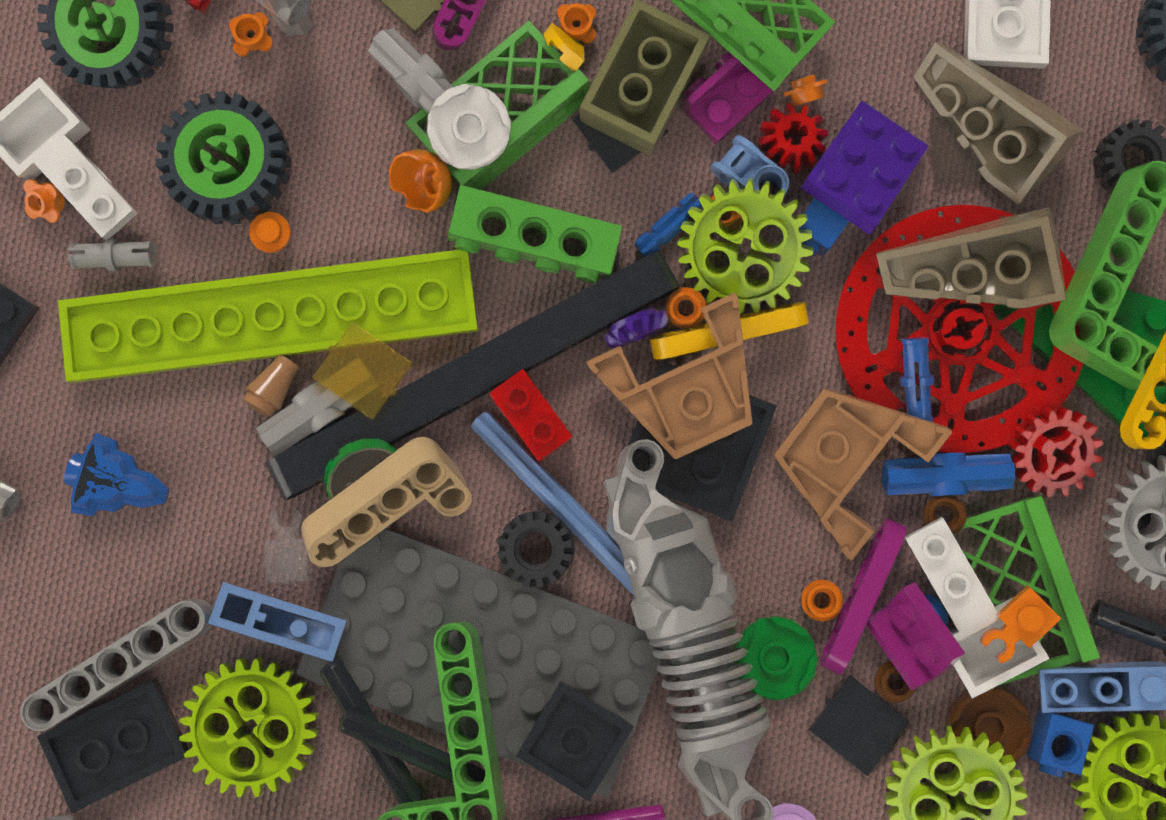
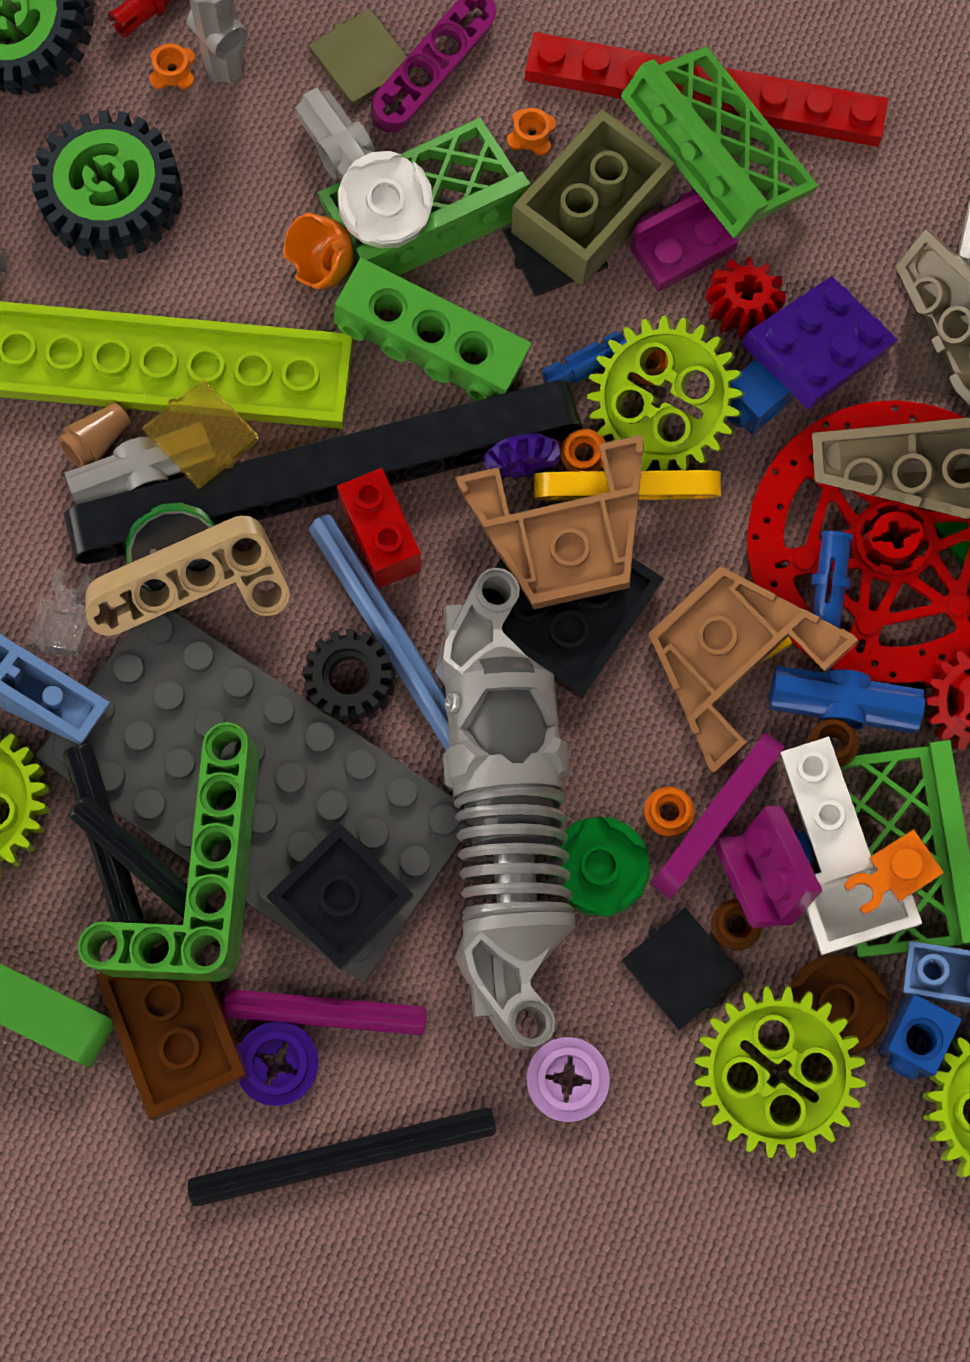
camera: 10 degrees right, 10 degrees down
(270, 232) = (137, 273): orange plate -> none
(572, 50) = (517, 154): yellow tile -> none
(750, 165) = (689, 304): medium blue piece -> none
(806, 90) = (771, 249): orange plate -> none

